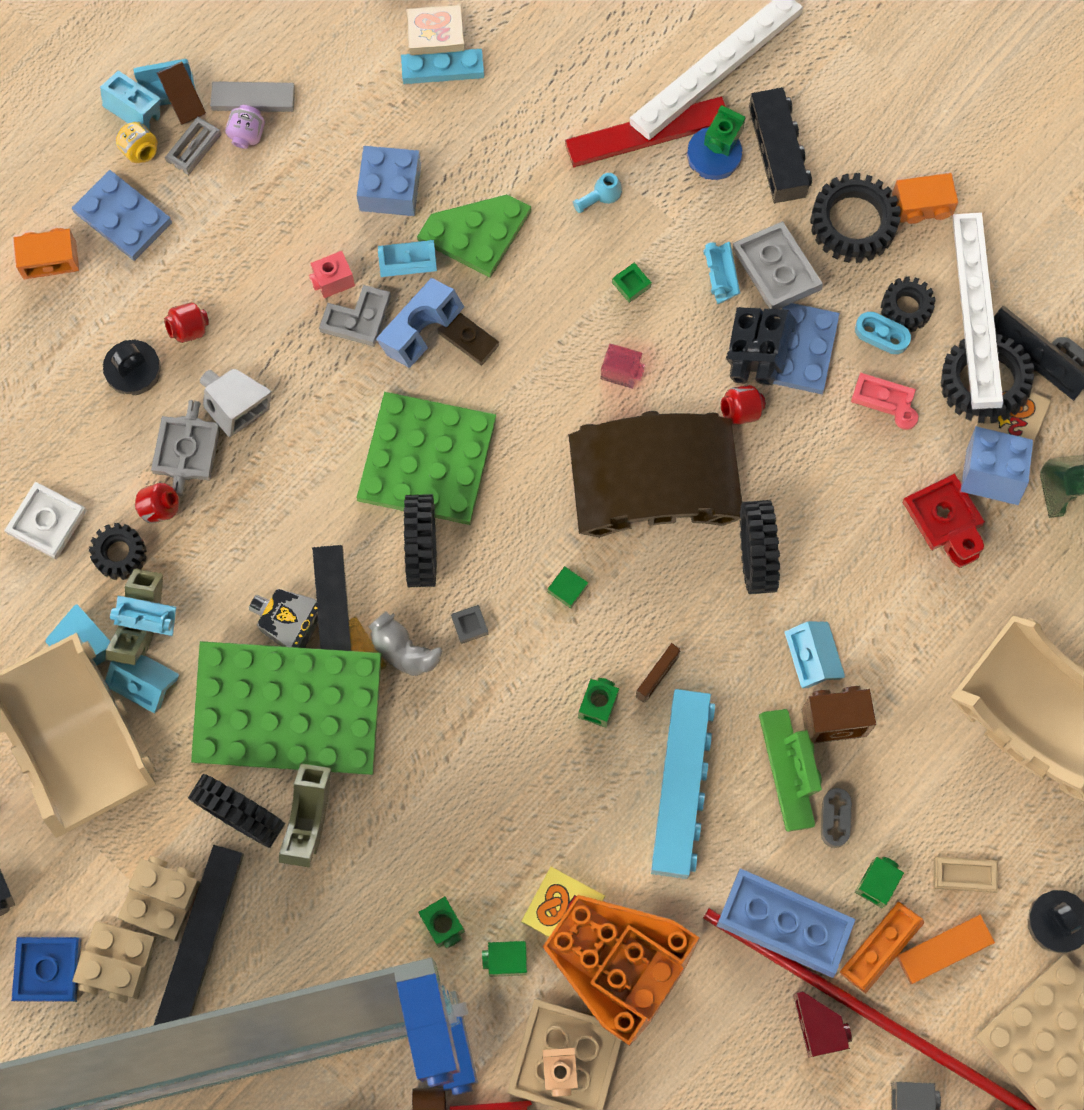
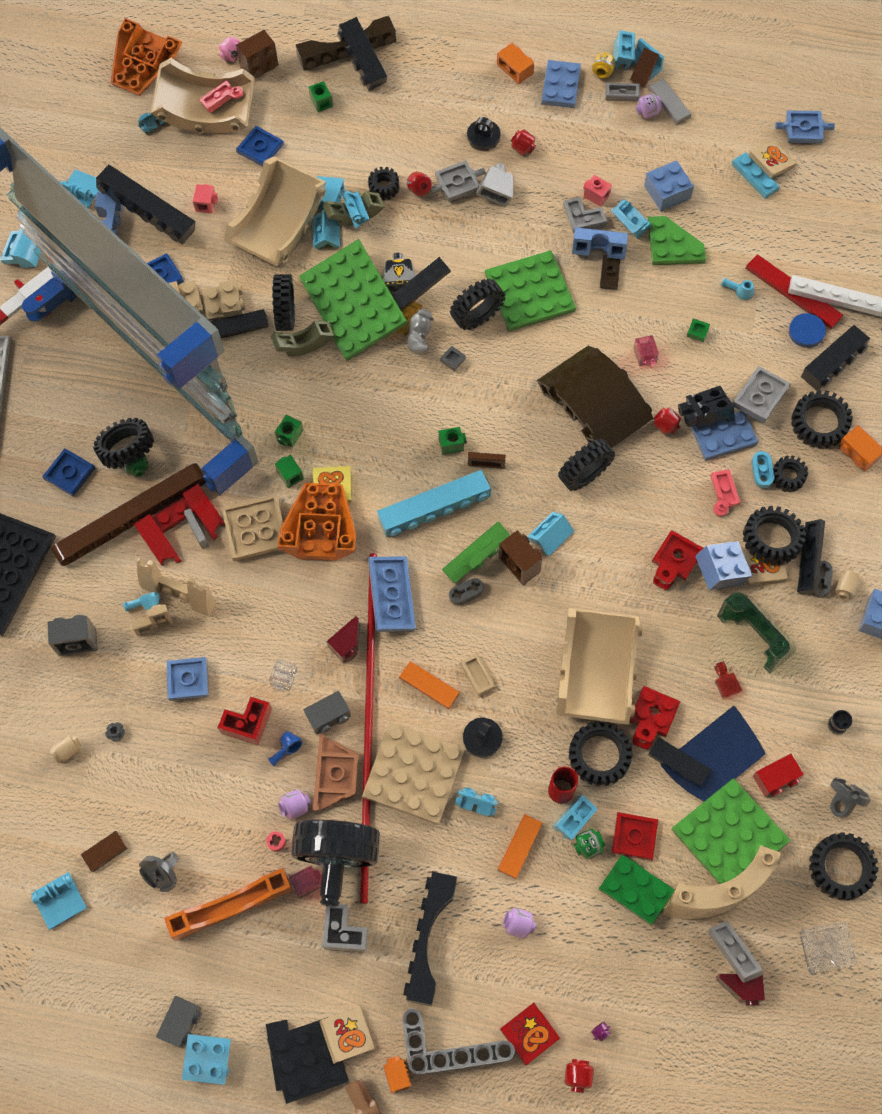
camera: 60 degrees right, 5 degrees down
(45, 520) = (378, 144): white plate -> none
(553, 1059) = (251, 525): light nougat brick -> none
(567, 587) = (505, 394): green tile -> none
(723, 271) = (731, 373): medium azure hinge -> none
(724, 131) = (820, 324): green brick -> none
(880, 881) = (444, 630): green brick -> none
(882, 947) = (409, 650): orange tile -> none
(977, 311) = (809, 506): white plate -> none

